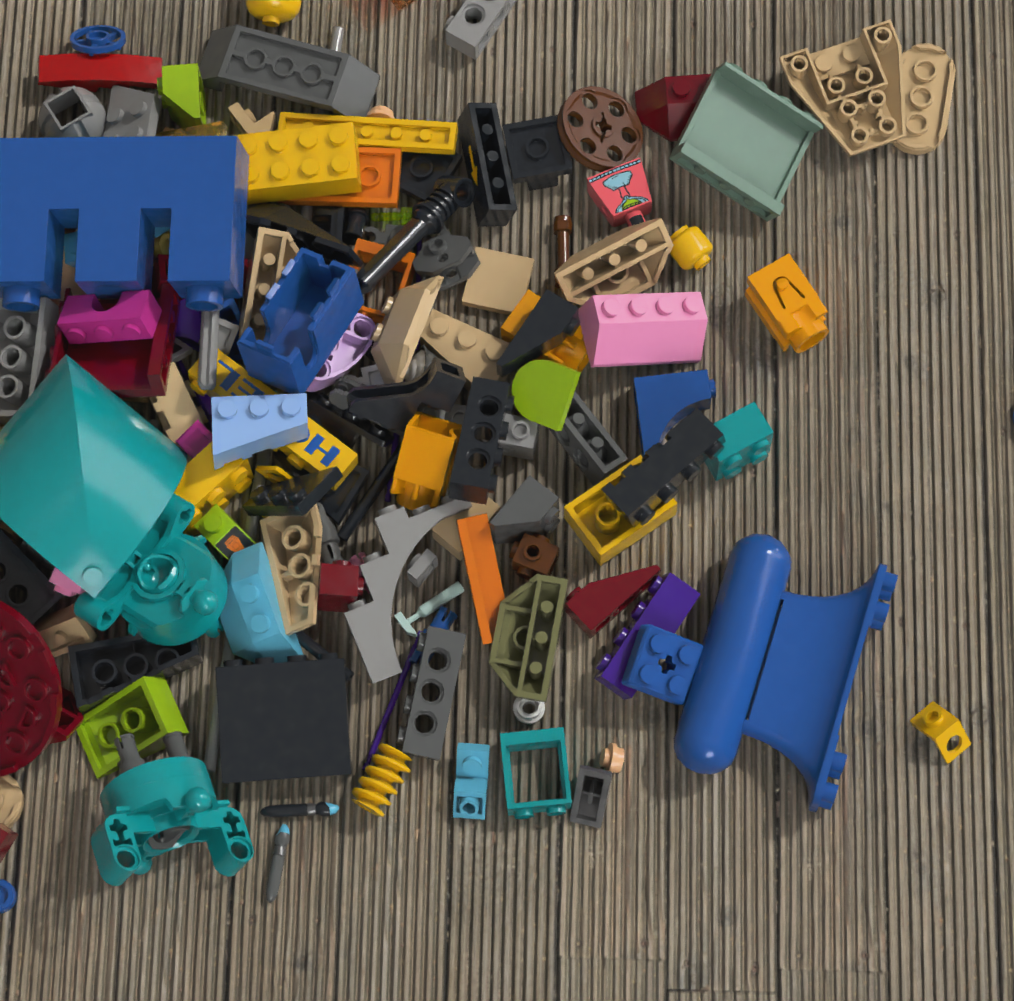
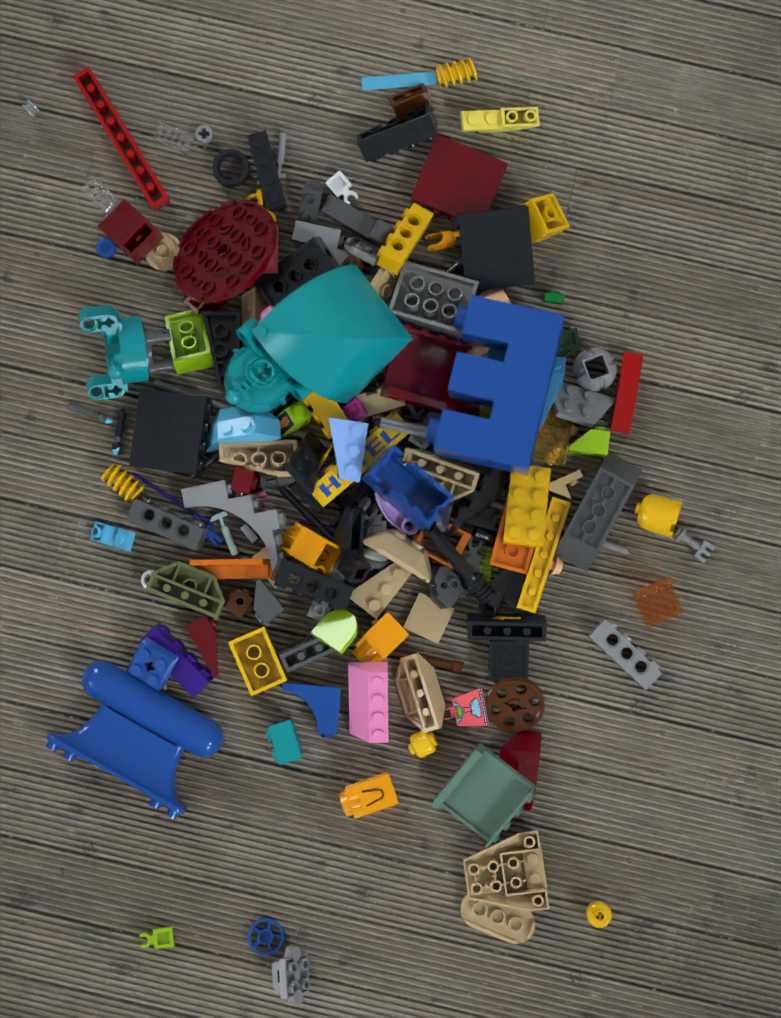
camera: 95 degrees right, 15 degrees up
(98, 39) = (648, 394): blue wheel -> none
(130, 319) = (433, 383): dark pink arch -> none
(531, 741) = (128, 581): teal window -> none
(542, 331) = (377, 638): black slope -> none
(591, 796) = (87, 605): flat silver slope -> none
(612, 758) = (107, 622): light nougat plate -> none
(665, 468) = (267, 692): black wedge -> none
(940, 727) = (83, 822): yellow bracket -> none

